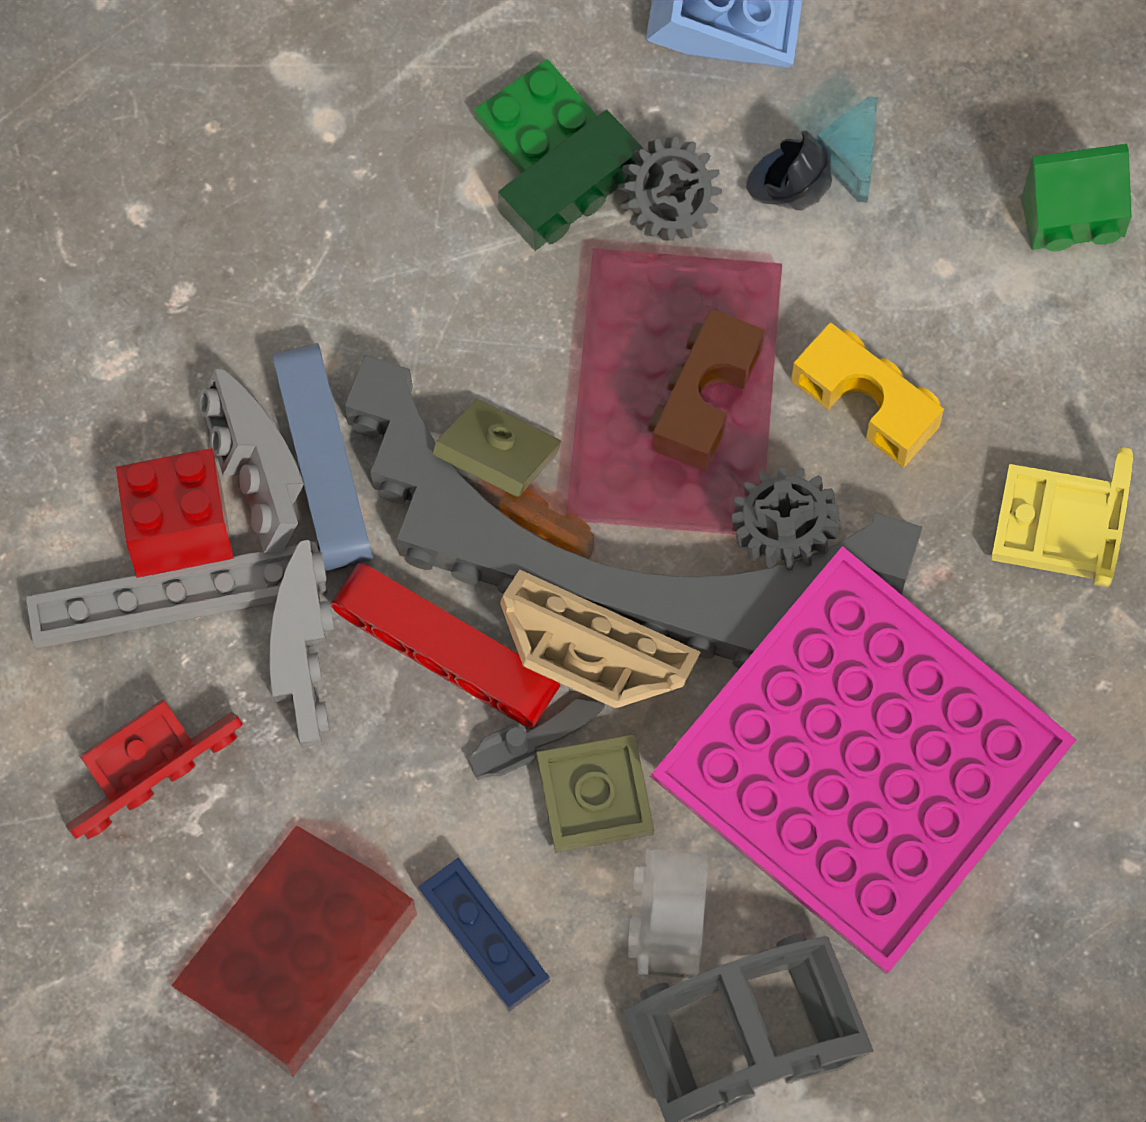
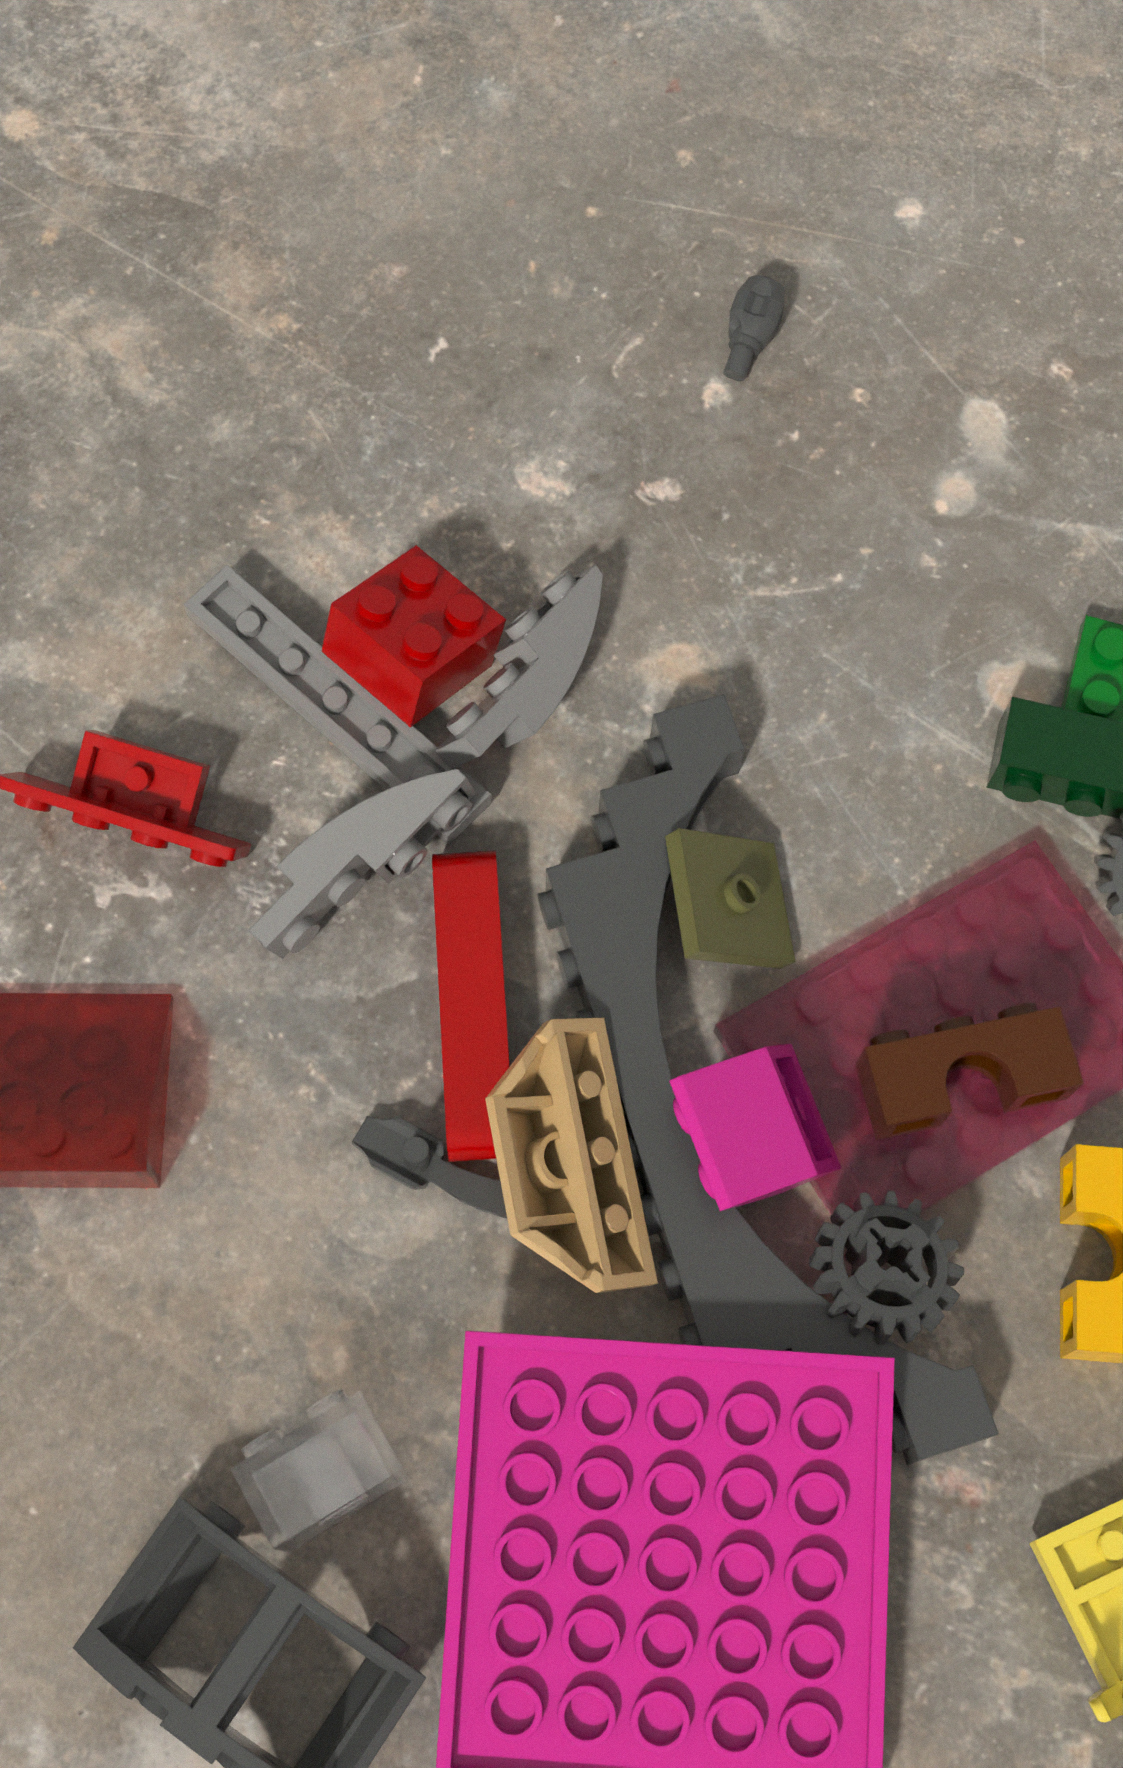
camera: 50 degrees right, 0 degrees up
(111, 153) = (753, 322): none -> dark grey piece
(322, 457) = (586, 736): sand blue beam -> none
(483, 934) = (174, 1276): dark blue plate -> none
(533, 514) = (686, 986): clear orange plate -> none
(595, 793) = (418, 1282): olive plate -> none
(651, 530) = (753, 1126): none -> dark pink slope

